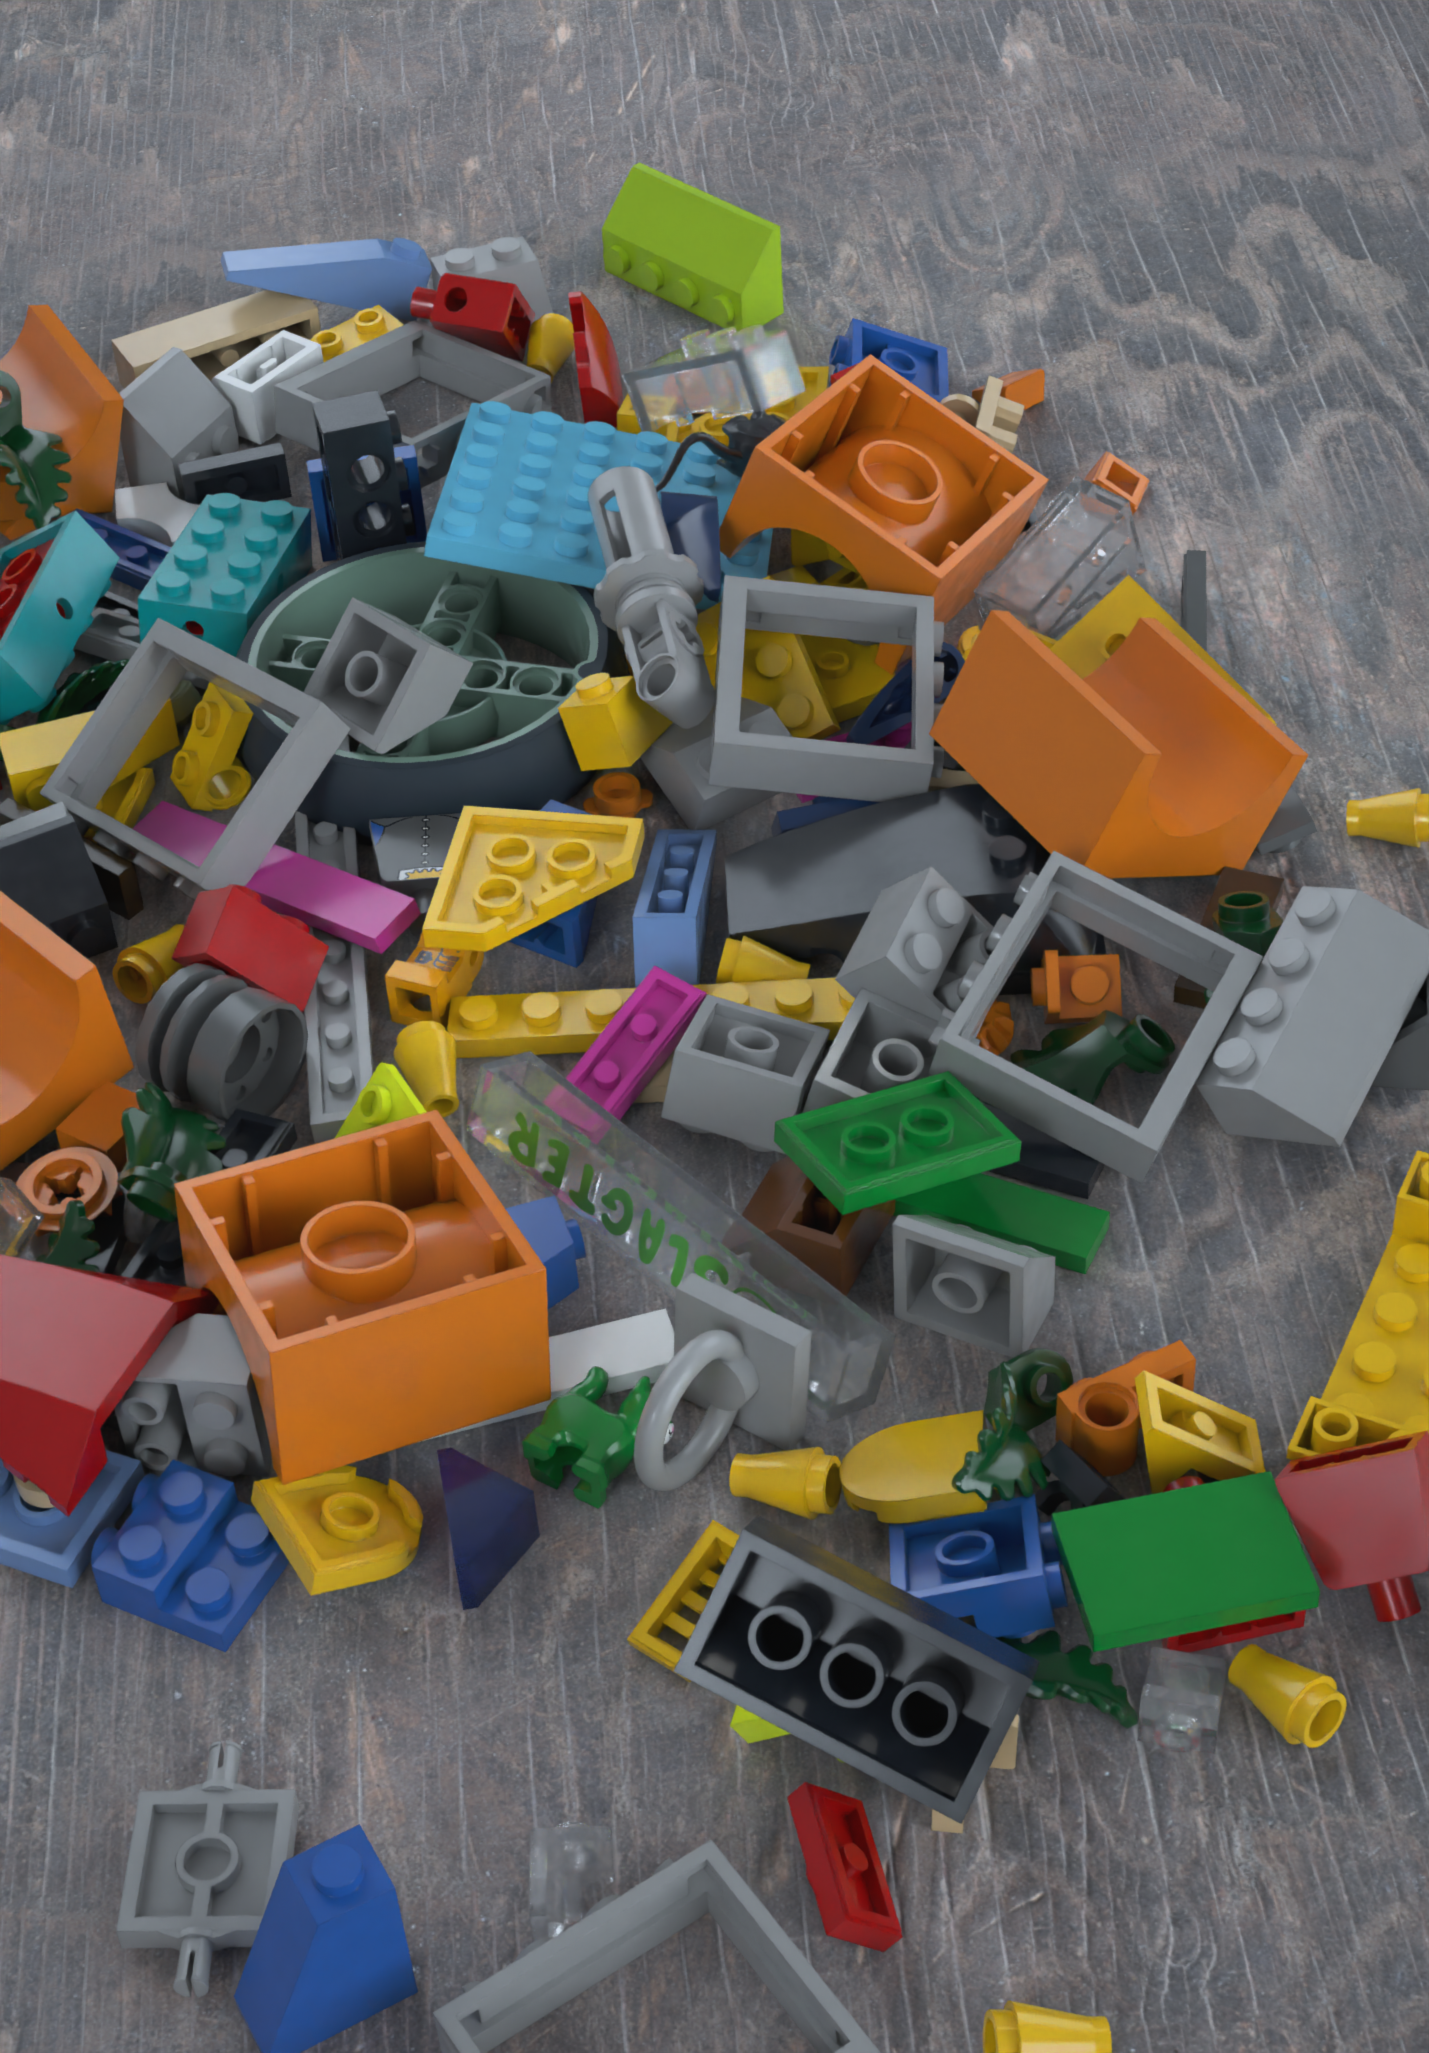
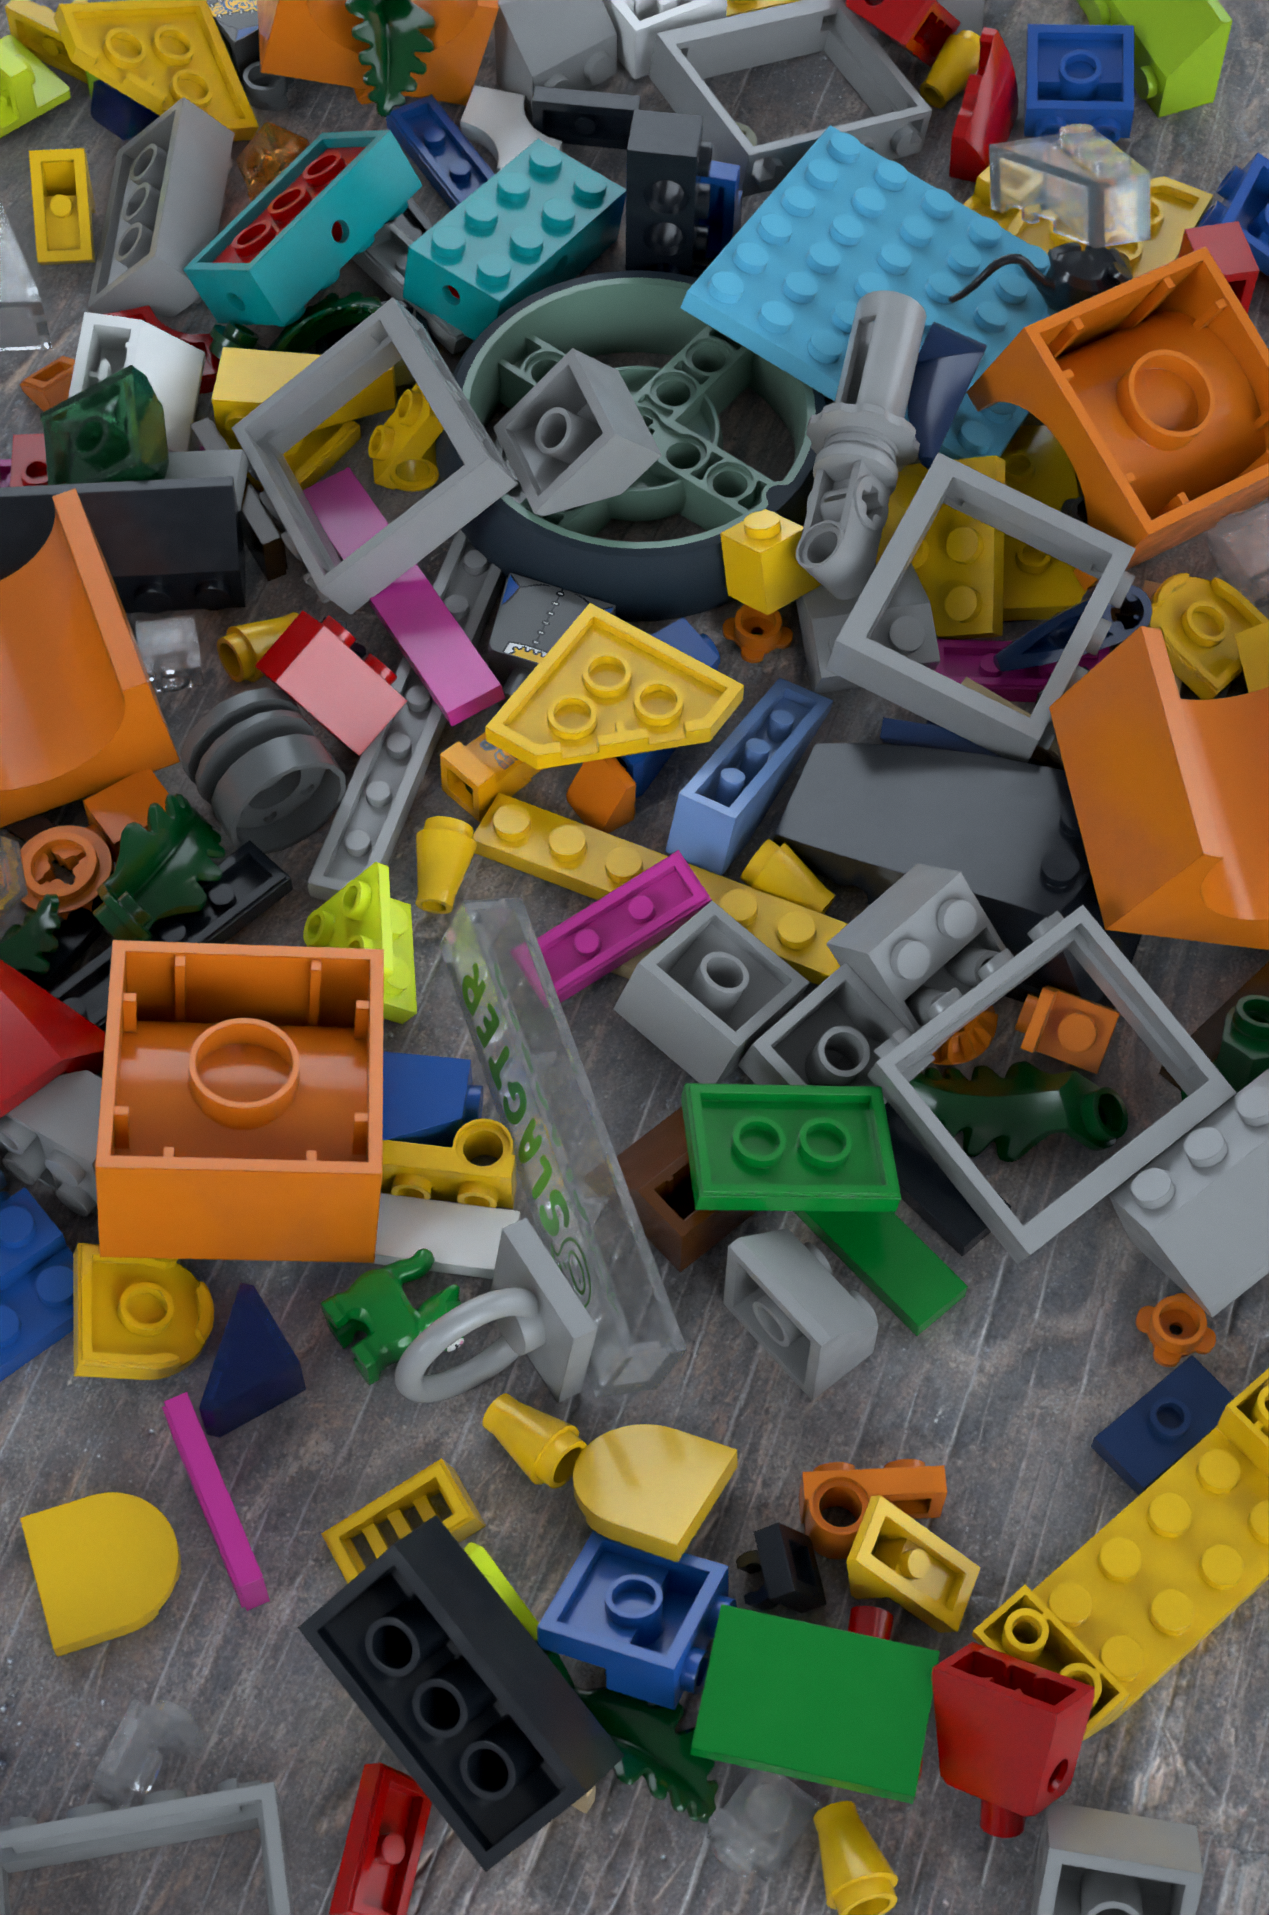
camera: 20 degrees right, 15 degrees up
(422, 1755) = (101, 1567): none -> yellow tile
(512, 1648) = (215, 1502): none -> dark pink tile
(549, 960) = (603, 795): none -> orange slope
(605, 1287) = (447, 1171): none -> yellow plate
(658, 312) = (1079, 79): none -> blue plate
(1012, 1410) = (743, 1503): dark green plant -> none
(1310, 1176) = (1178, 1311): none -> orange plate
(1344, 1253) = (1163, 1425): none -> dark blue plate

